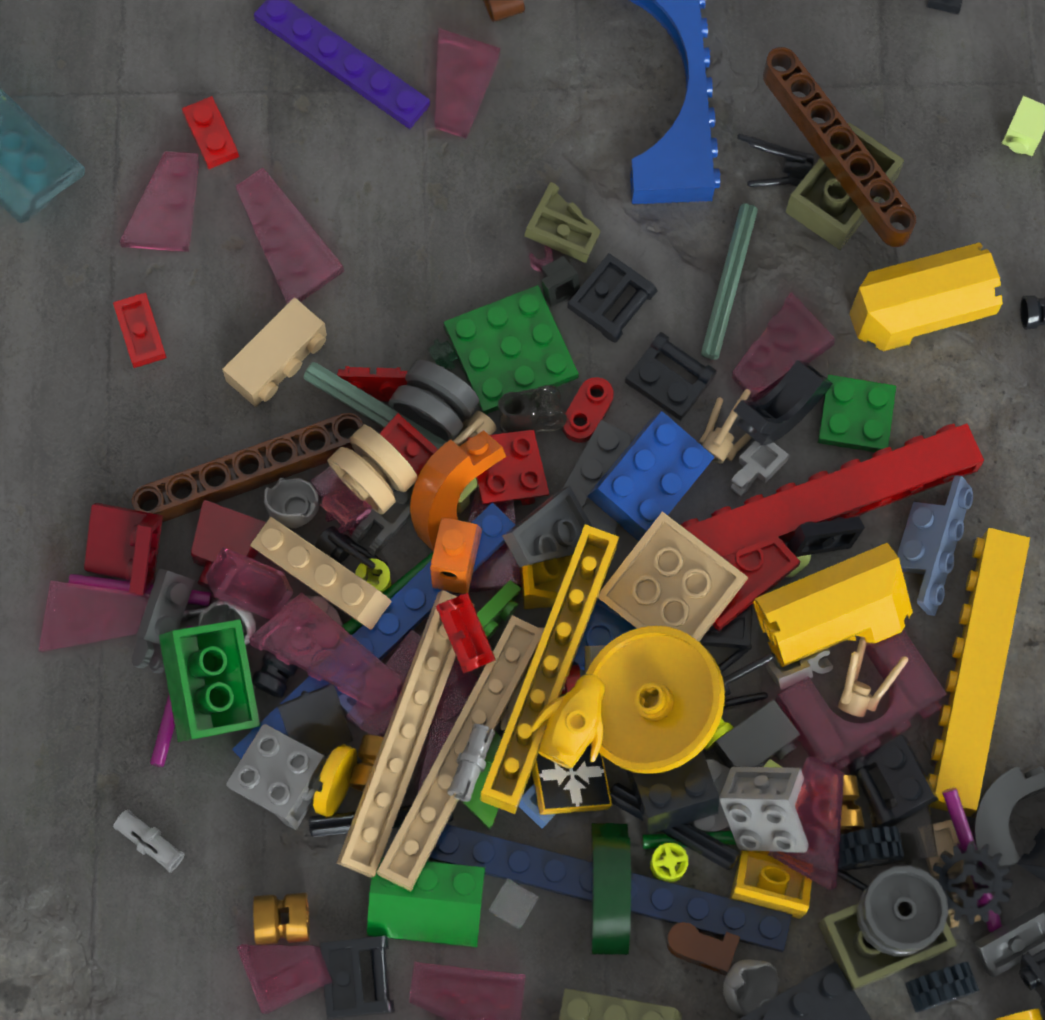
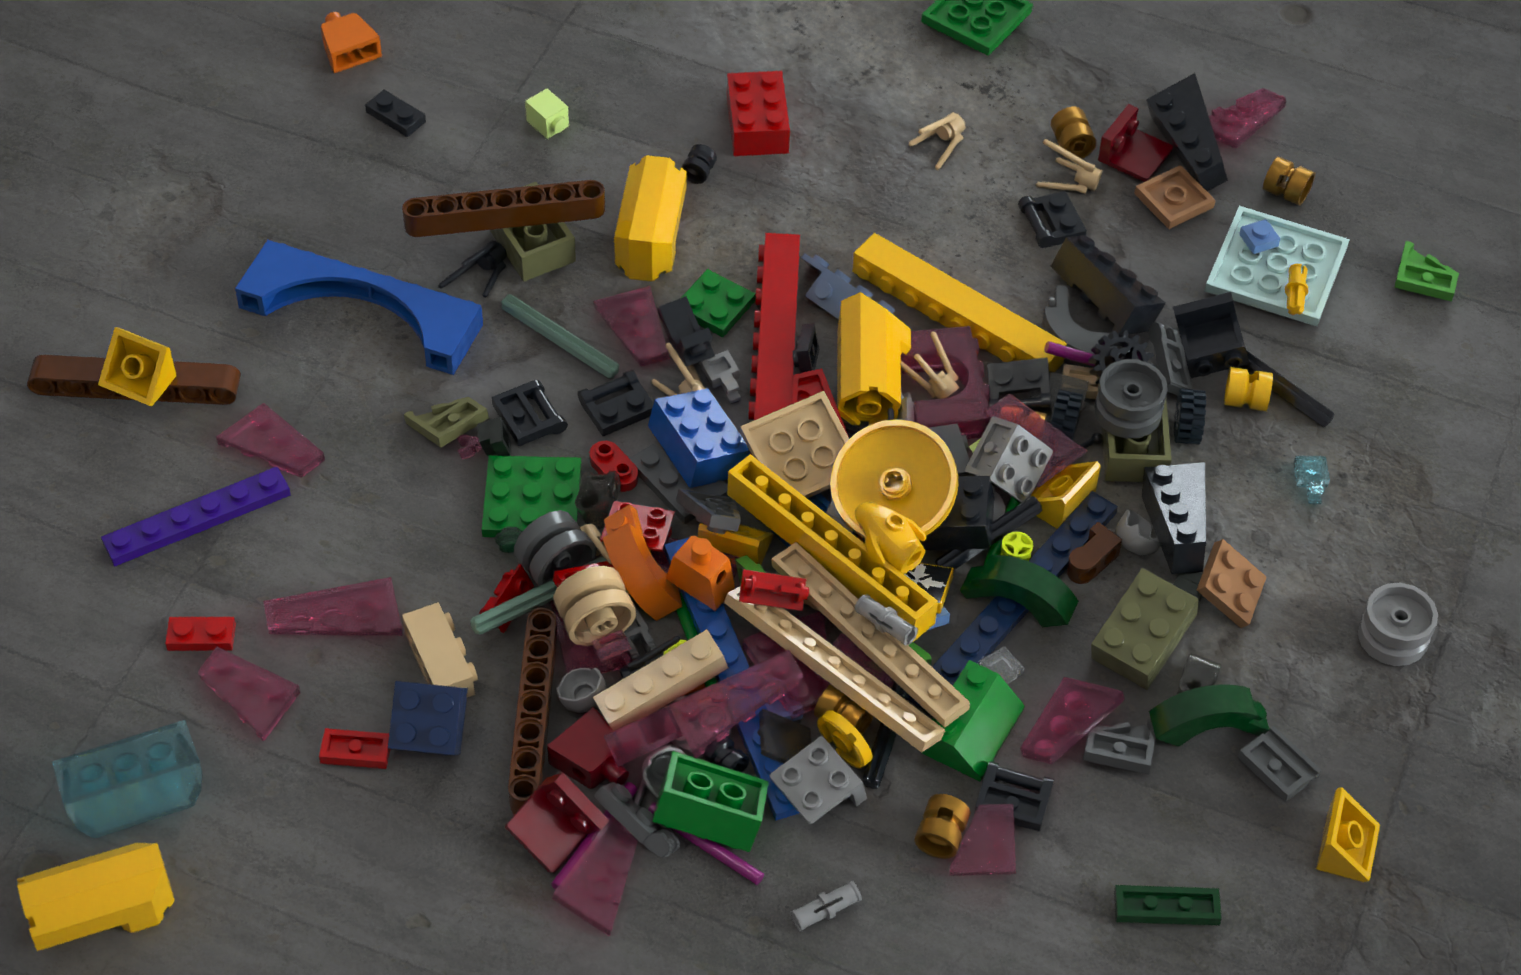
camera: 65 degrees left, 20 degrees down
(186, 377) = (427, 718): none -> dark blue brick

